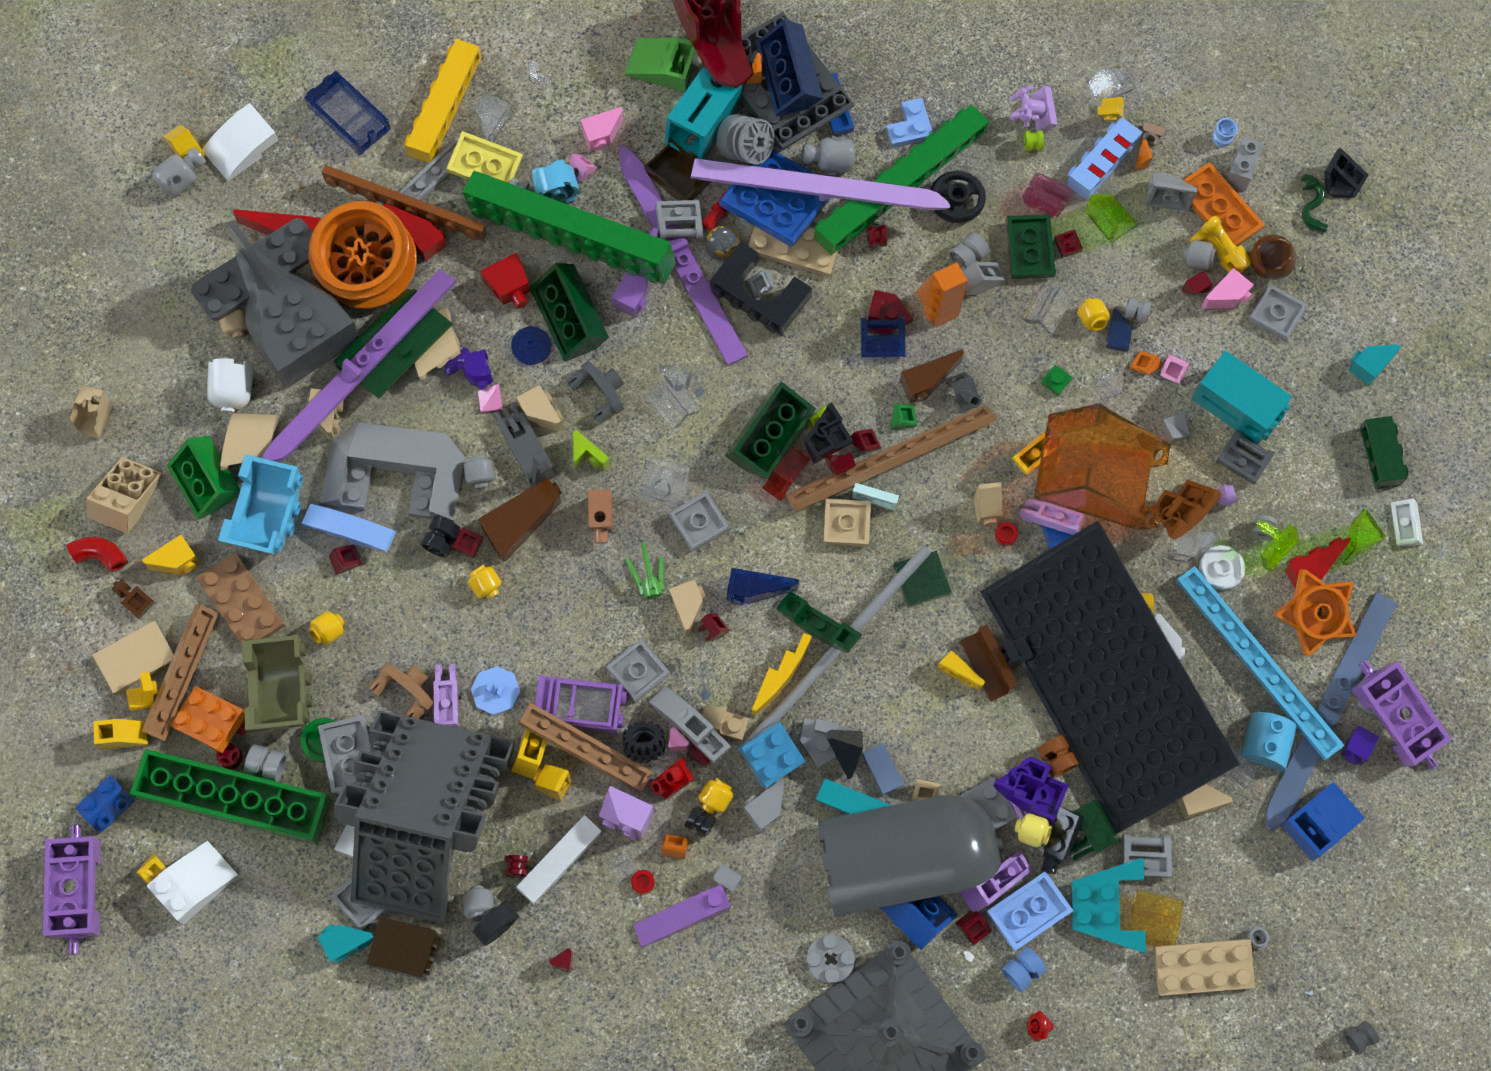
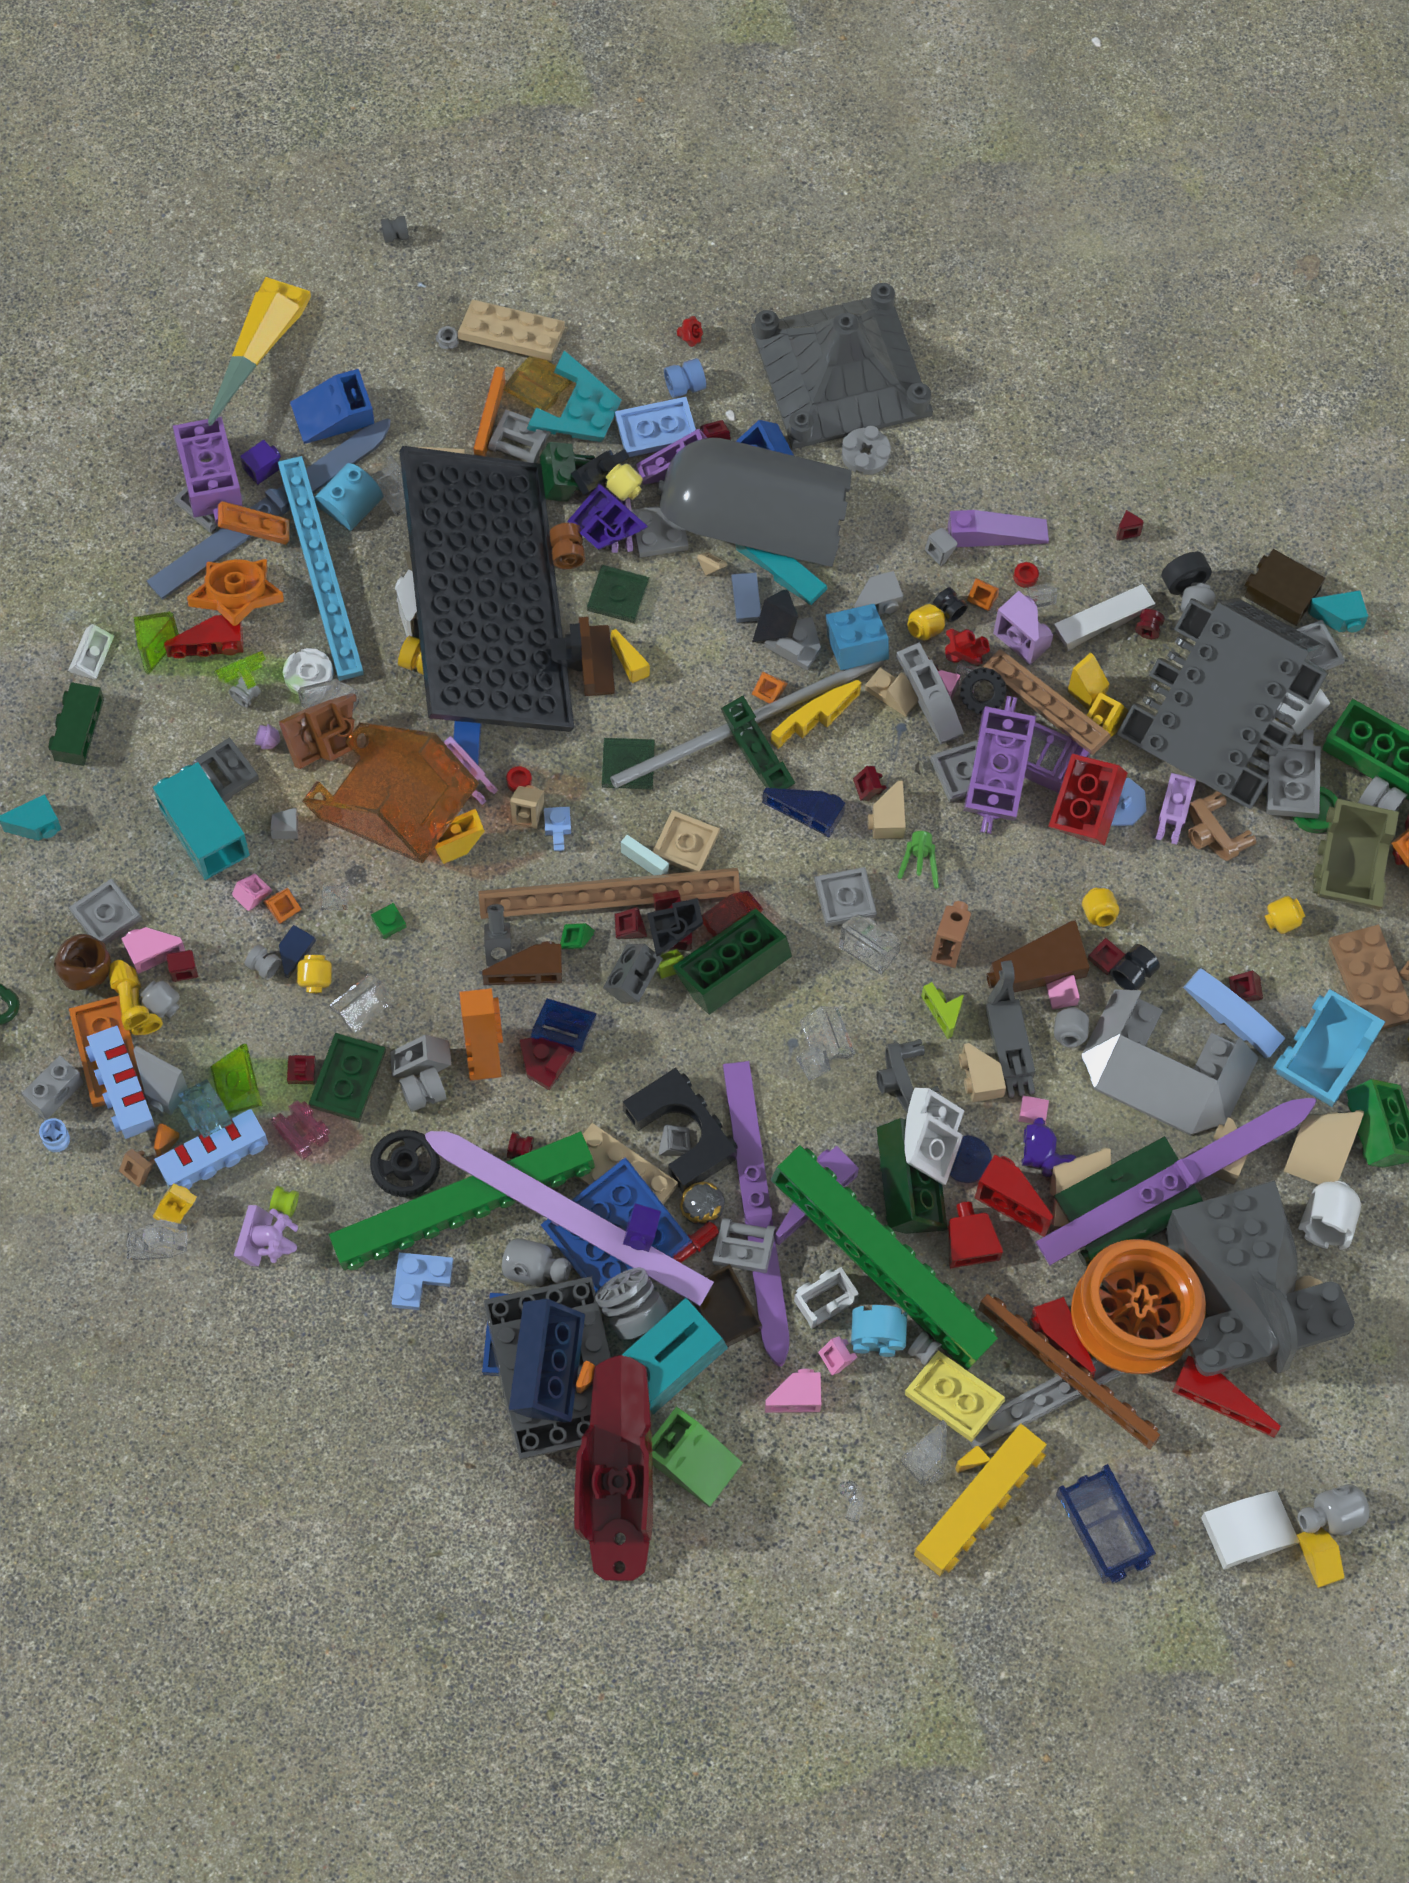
camera: 160 degrees left, 5 degrees down
(457, 123) = (972, 1459): none -> yellow slope
(487, 315) = (1011, 1194): none -> red slope
(493, 499) = (1063, 992): none -> bright pink slope
(521, 666) = (1088, 799): none -> red slope
(563, 341) = (932, 1134): none -> white slope
(599, 198) = (827, 1280): none -> white window
(607, 688) = (995, 791): none -> medium lavender brick
(758, 185) = (641, 1227): none -> dark purple brick
(830, 689) = (769, 688): none -> orange slope
(846, 392) = (632, 973): none -> dark grey brick
(957, 506) = (557, 824): none -> light blue plate
(995, 733) = (618, 594): none -> clear green tile
(1124, 179) = (204, 1109): none -> clear light blue brick
(1183, 867) = (490, 412): none -> orange tile
(1185, 164) = (120, 1082): none -> light blue brick
(1334, 676) = (253, 522): none -> orange tile
(1426, 897) = (269, 317): none -> yellow plate

